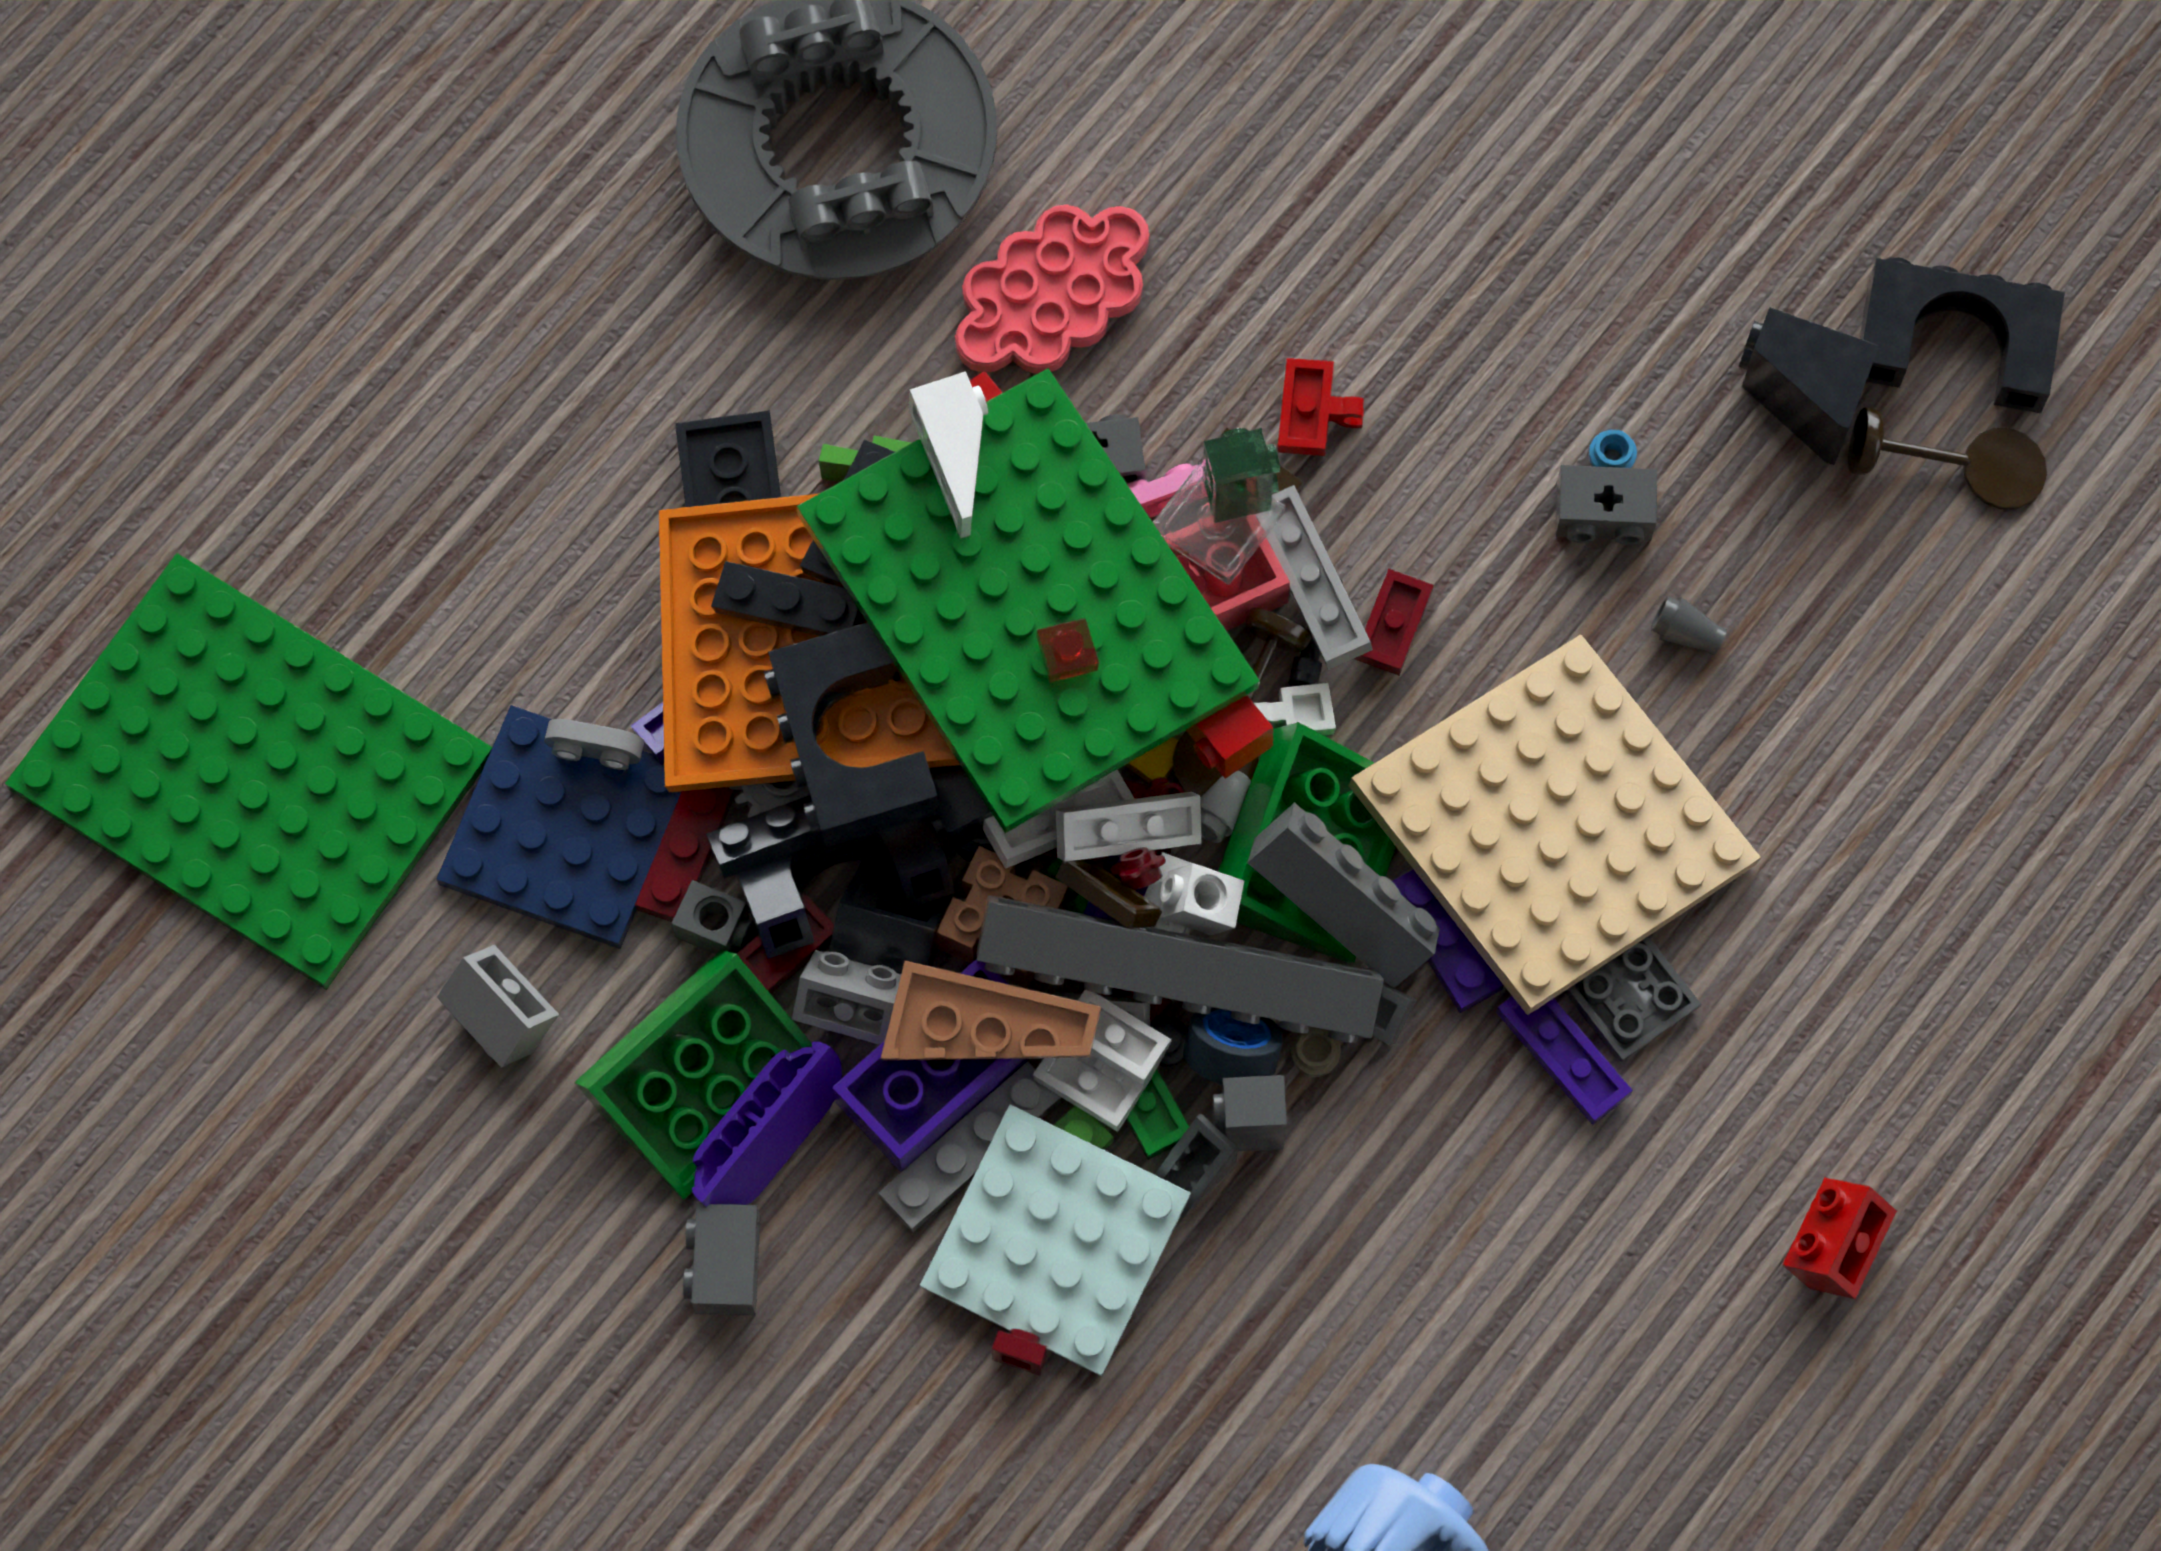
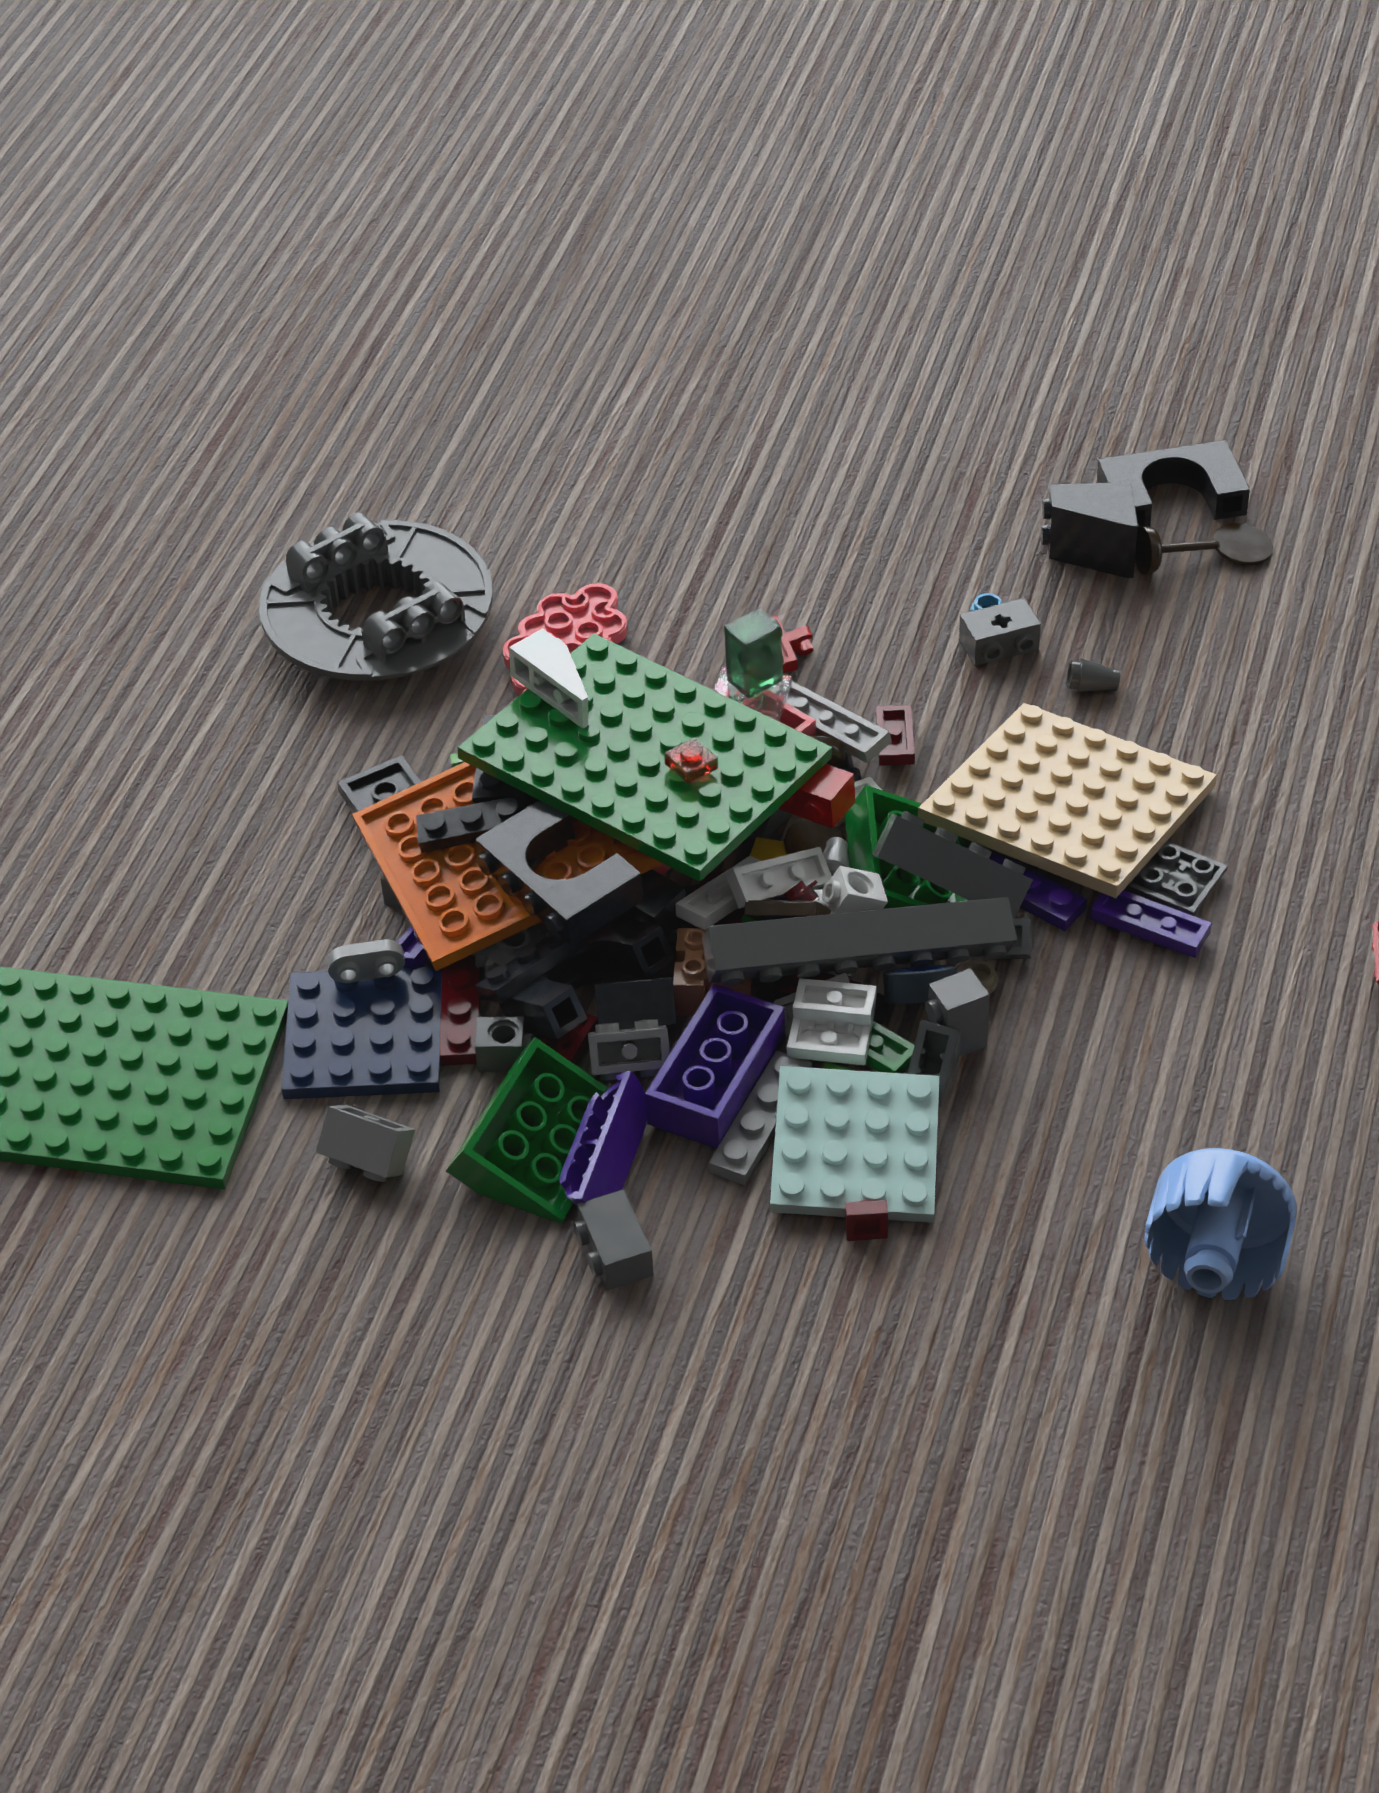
camera: 20 degrees left, 25 degrees down
(974, 1018) = (731, 1012): nougat wing -> none

